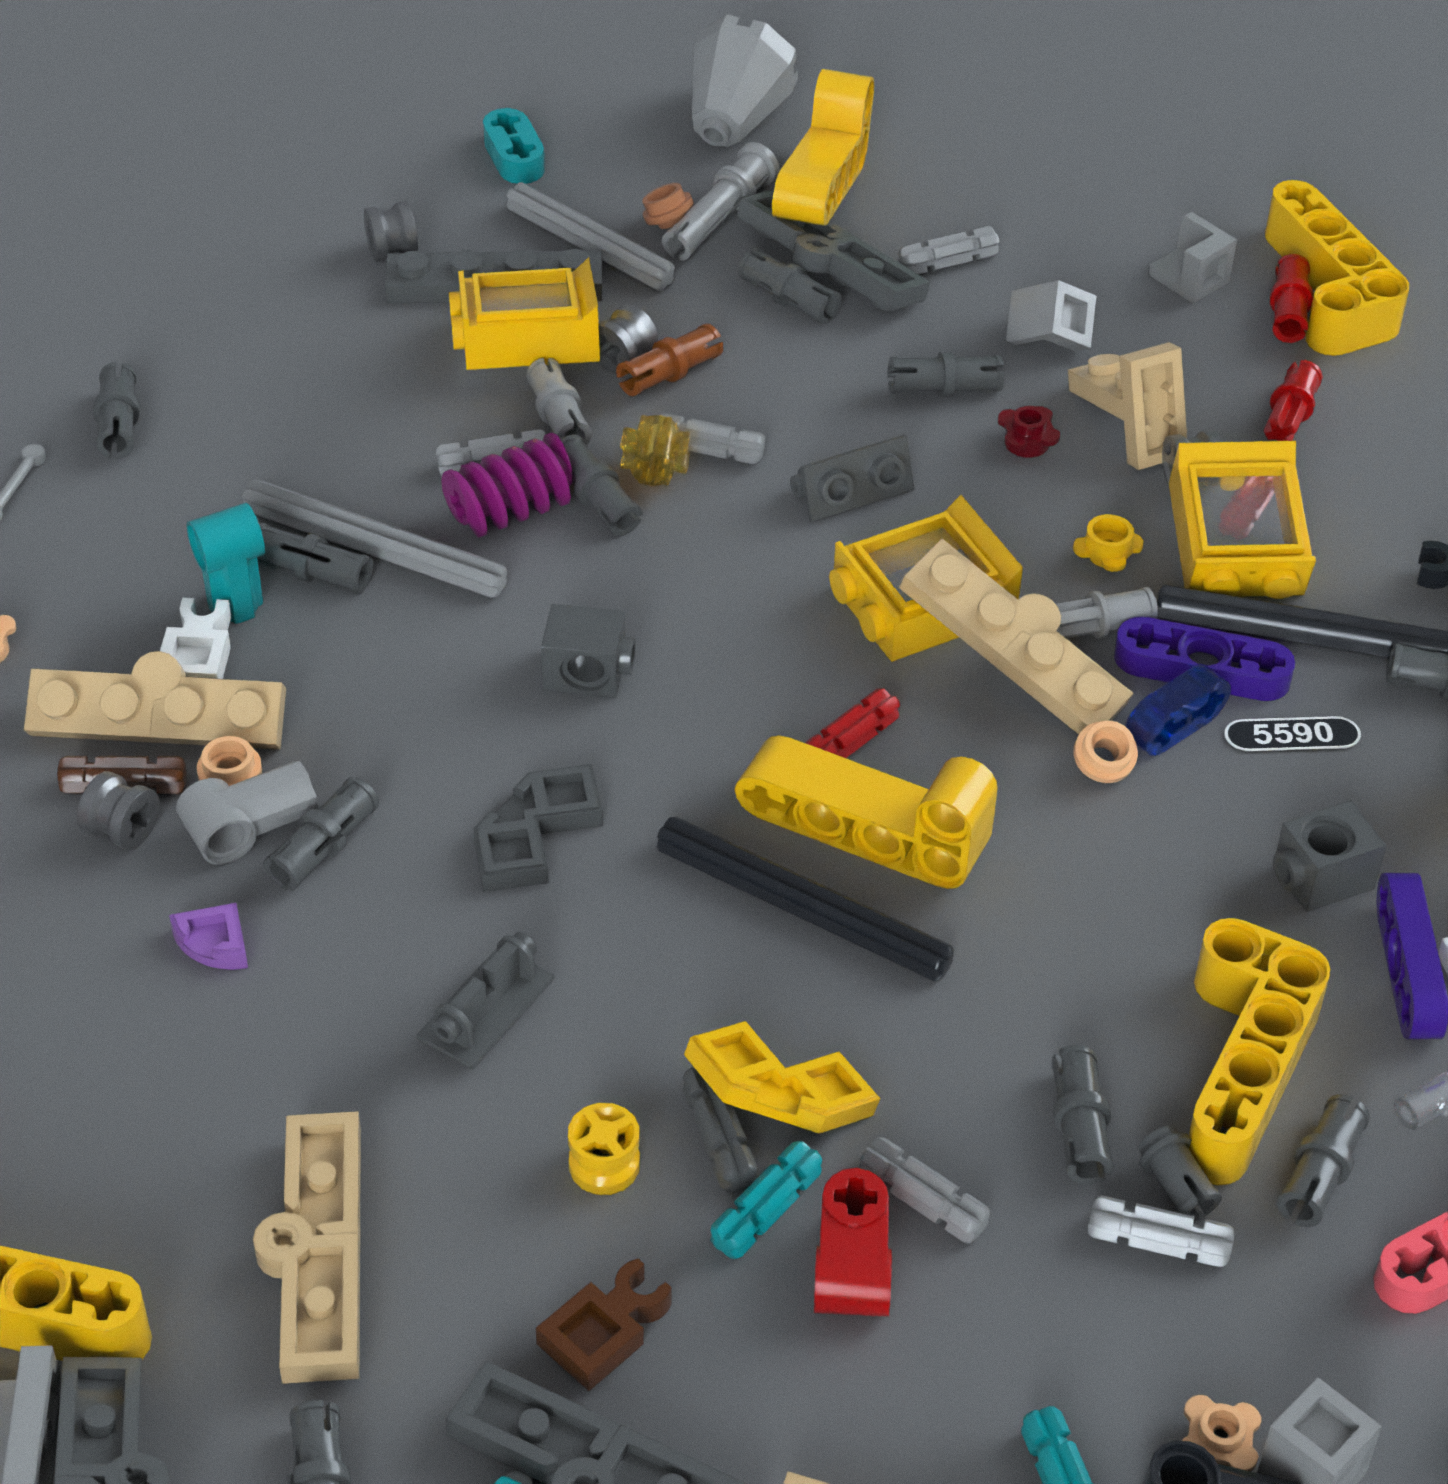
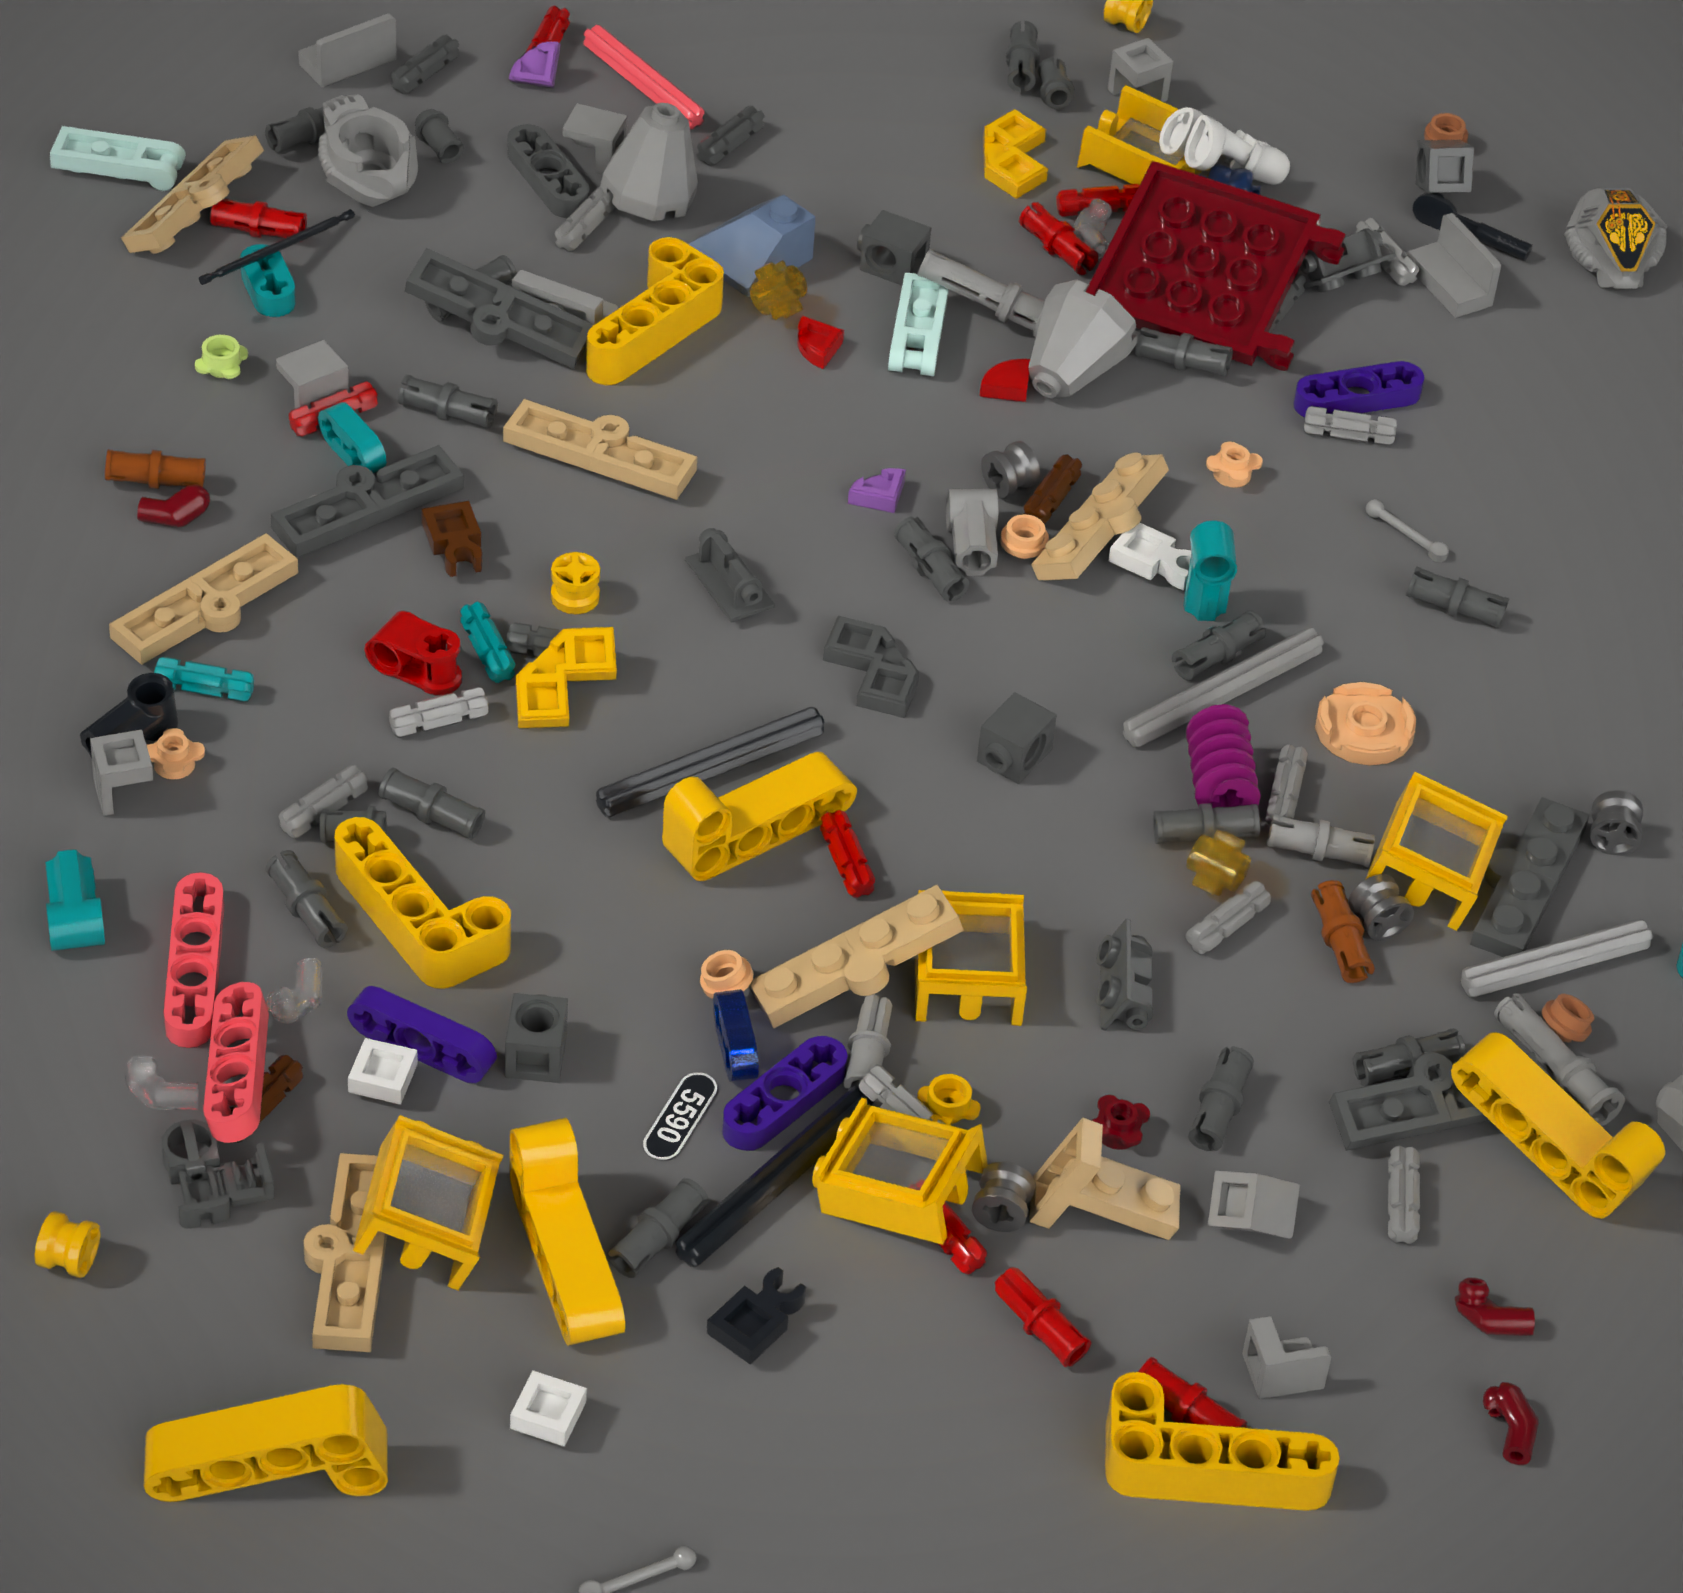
camera: 115 degrees right, 0 degrees up
(352, 432) = (1365, 724): none -> light nougat tile
(1031, 175) = (1489, 1317): none -> dark red arm
(1117, 141) = (1522, 1421): none -> dark red arm
(1159, 553) = (879, 1085): none -> light grey axle

